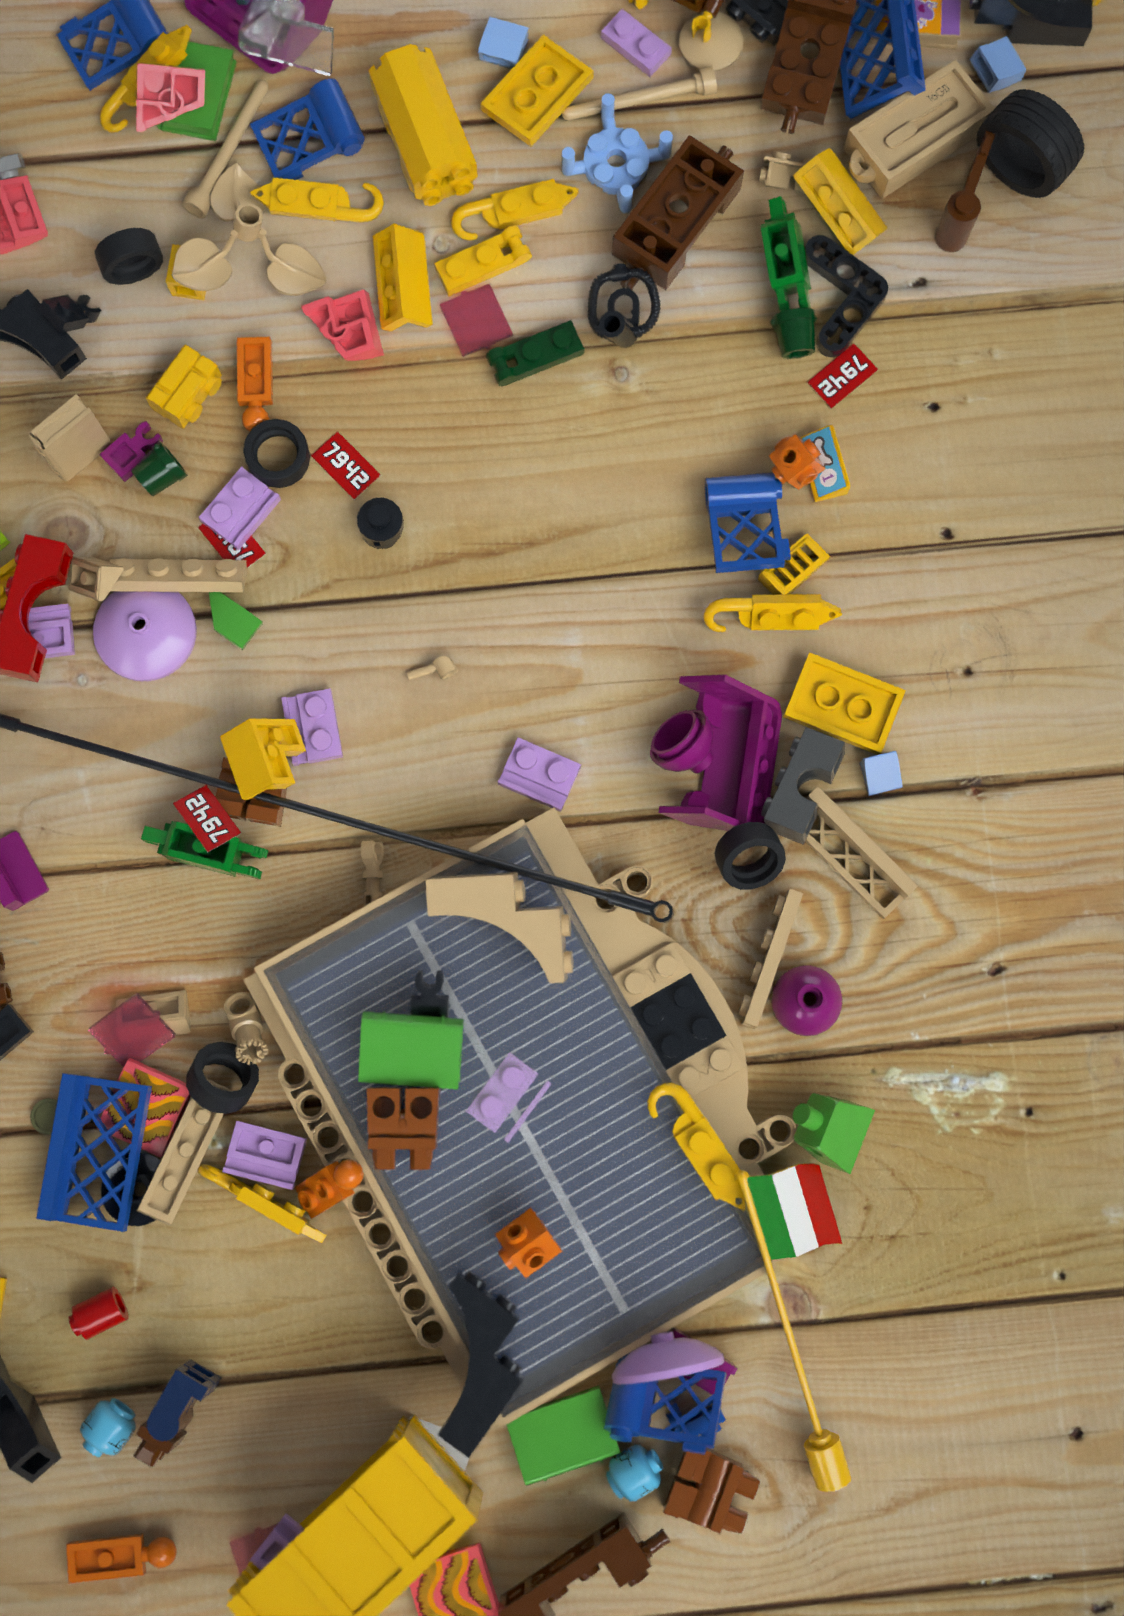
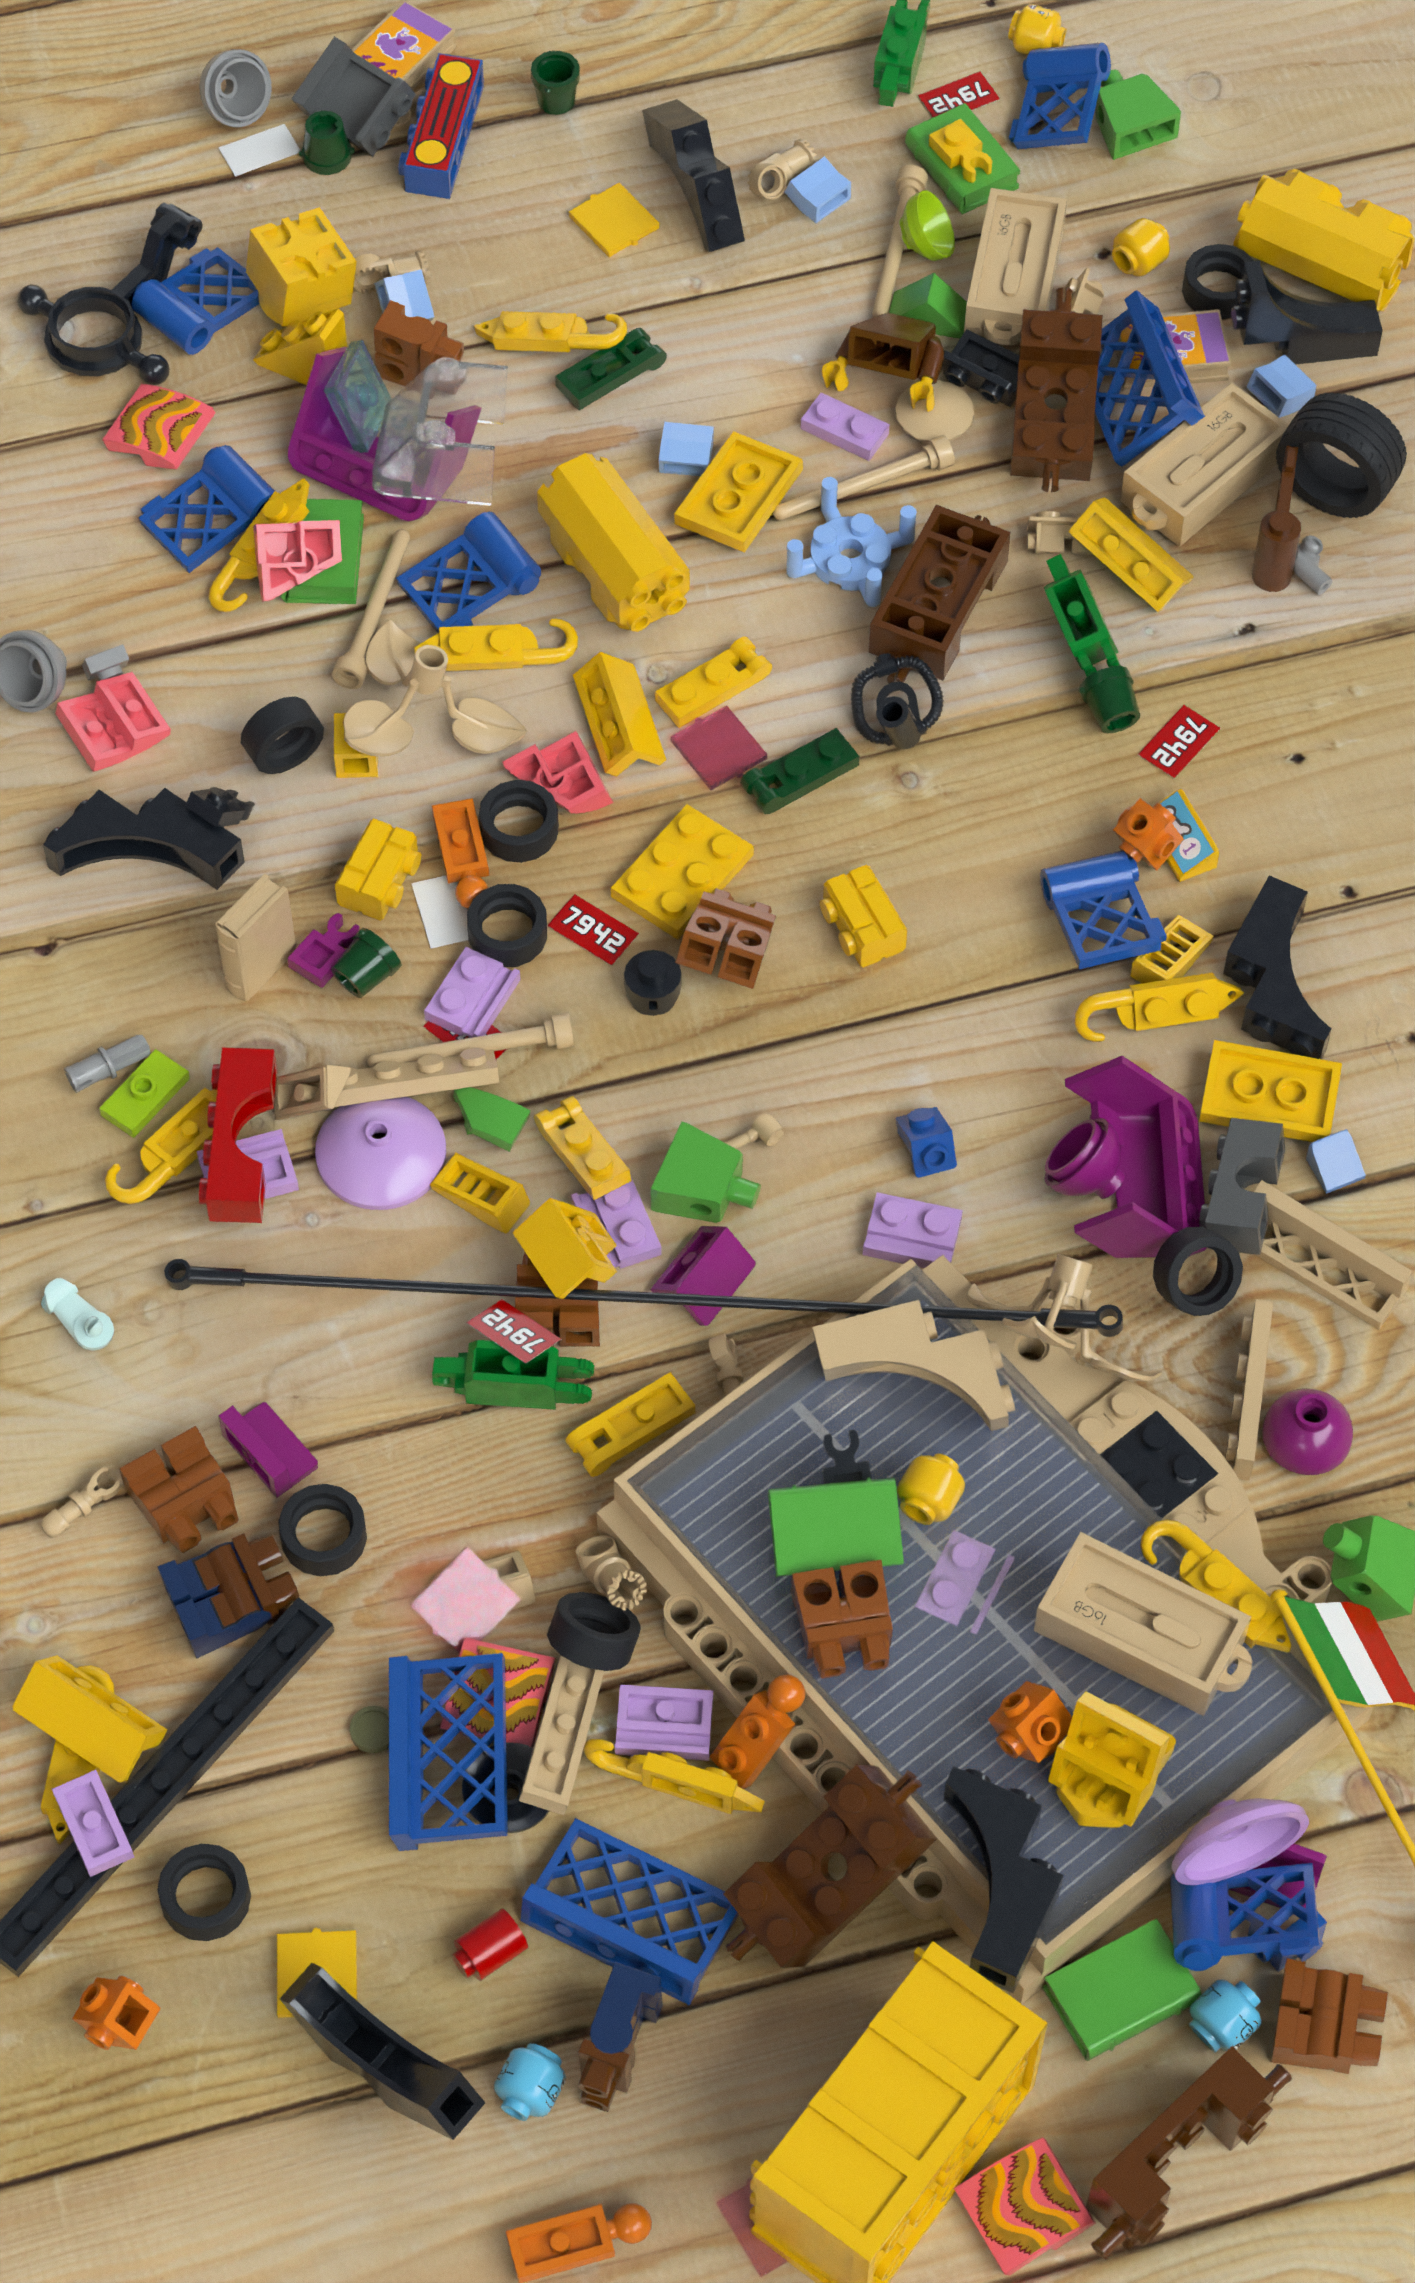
camera: 10 degrees left, 20 degrees down
(11, 947) = (317, 1498): none -> black tyre
(192, 1327) = (605, 1937): none -> blue fence
(228, 696) = (500, 1210): none -> yellow slope
(229, 429) = (441, 912): none -> white sticker
(289, 901) = (631, 1423): none -> yellow plate
(297, 661) = (583, 1148): none -> yellow plate
(298, 553) = (554, 1032): none -> tan piece
(301, 337) = (520, 794): none -> black tyre
(331, 1327) = (795, 1902): none -> reddish brown brick
(371, 783) = (707, 1265): none -> magenta panel
(383, 701) = (701, 1178): none -> bright green torso
(424, 426) = (677, 868): none -> yellow plate
(450, 490) = (728, 927): none -> dark orange hips
(493, 1027) = (930, 1488): none -> yellow head
(516, 206) = (740, 617): yellow plate -> none
(557, 494) = (863, 916): none -> yellow brick
(566, 698) = (928, 1141): none -> blue bracket
(583, 1286) = (1108, 1763): none -> yellow piece
(634, 1179) = (1145, 1625): none -> tan piece
(635, 873) = (1066, 1285): none -> tan plant
(856, 297) = (1174, 652): black beam -> none
(864, 587) = (1263, 961): none -> black arch
(981, 232) = (1307, 565): none -> light grey arm

